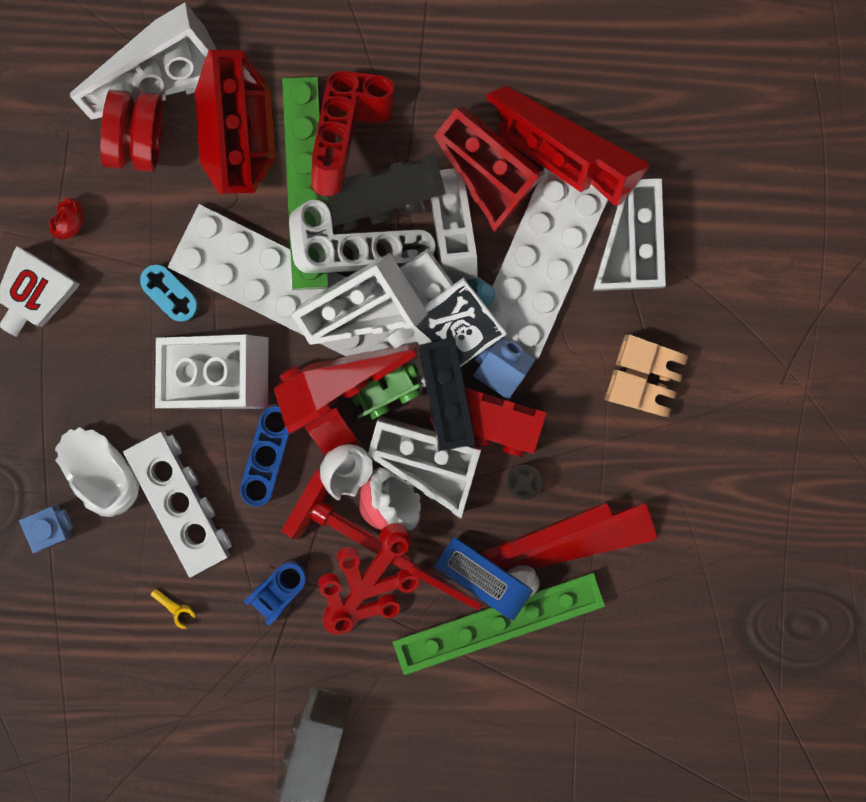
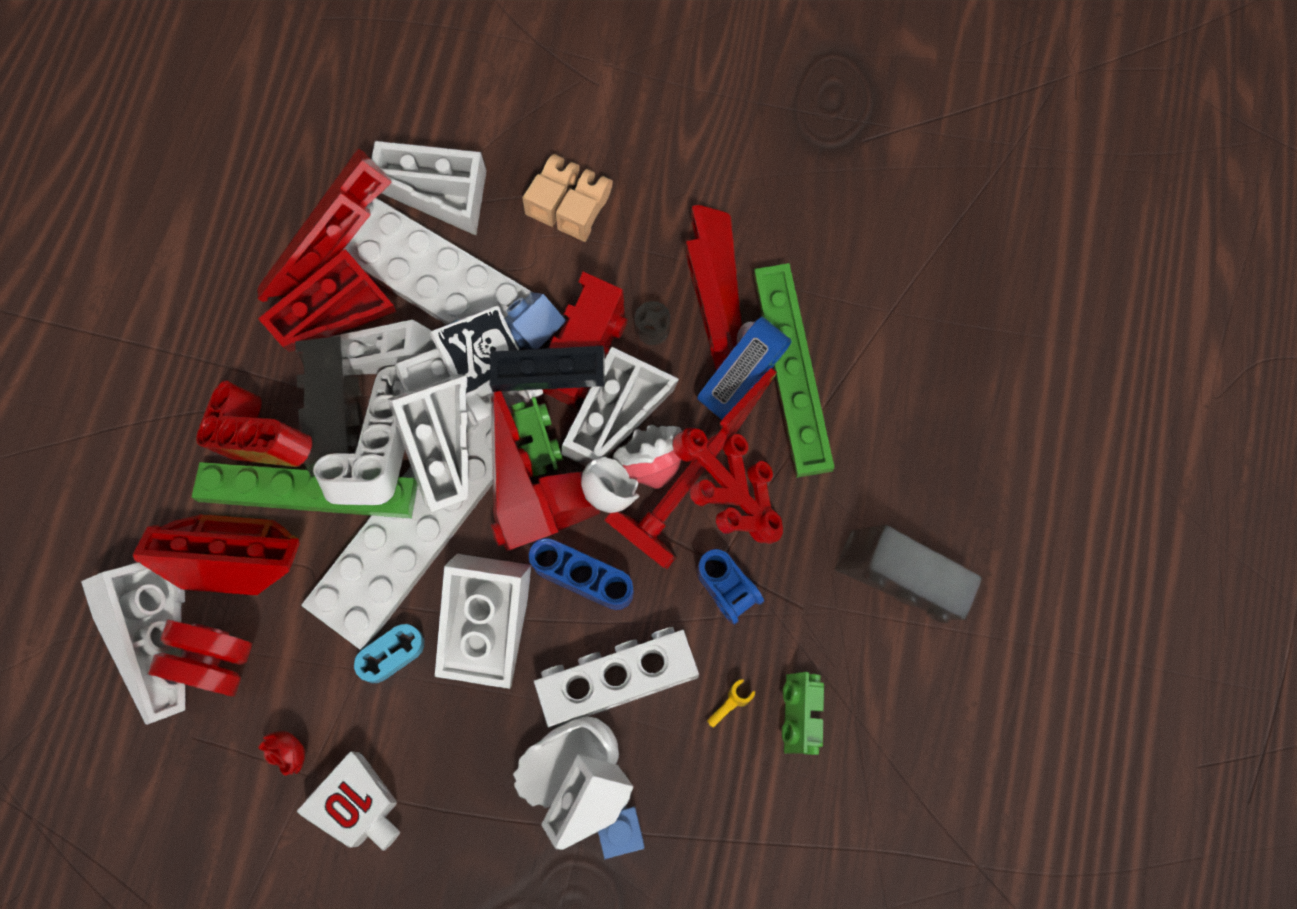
camera: 80 degrees left, 15 degrees down
(61, 498) = (586, 801): none -> white slope
(157, 674) = (802, 695): none -> bright green hinge

